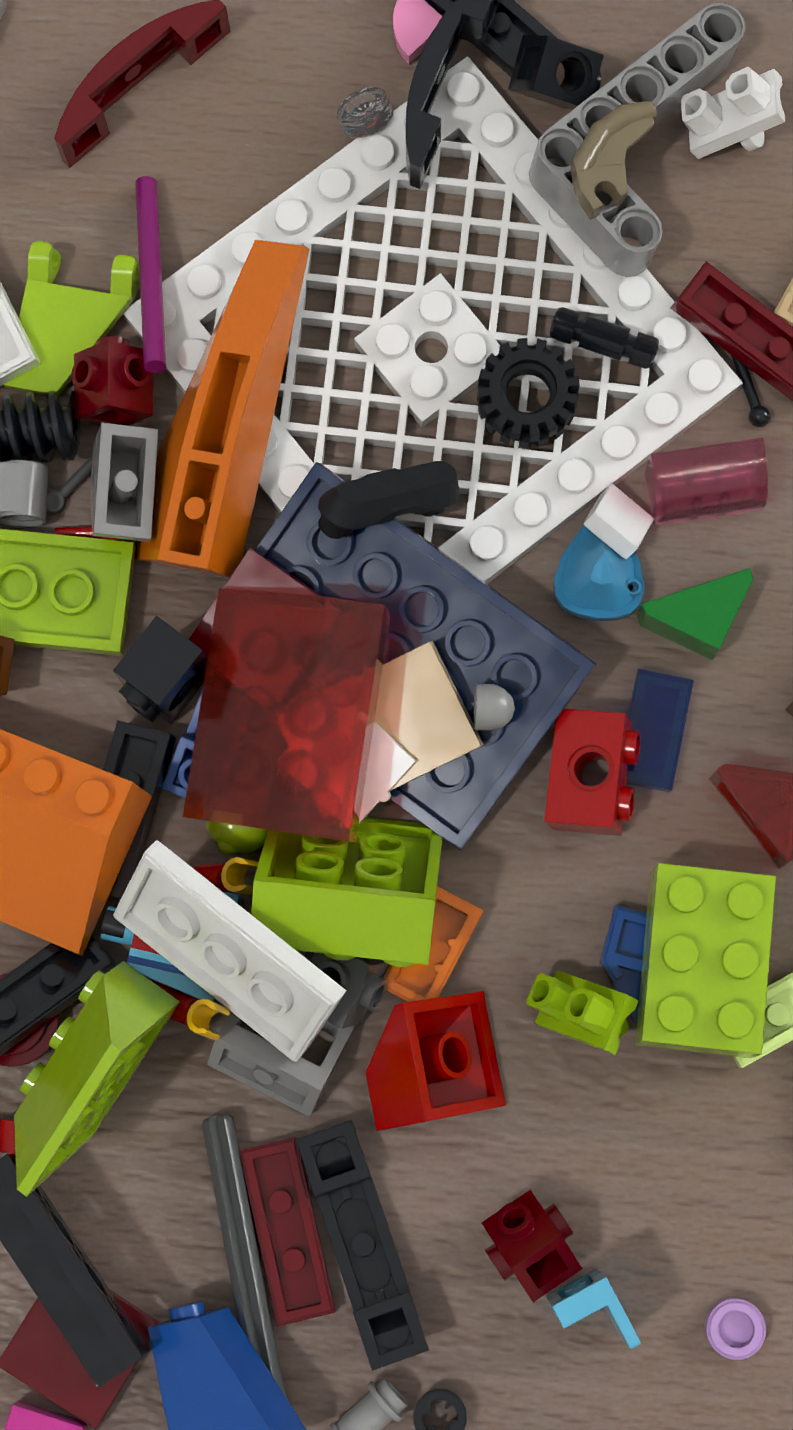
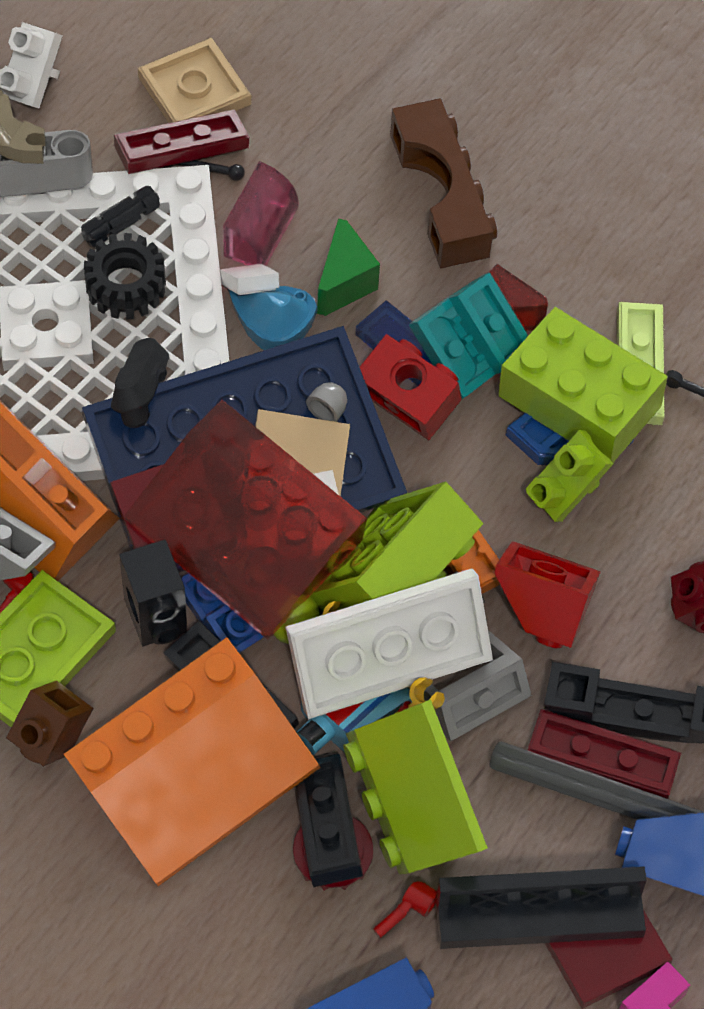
camera: 65 degrees left, 20 degrees down
(695, 802) = (471, 332): none -> teal slope

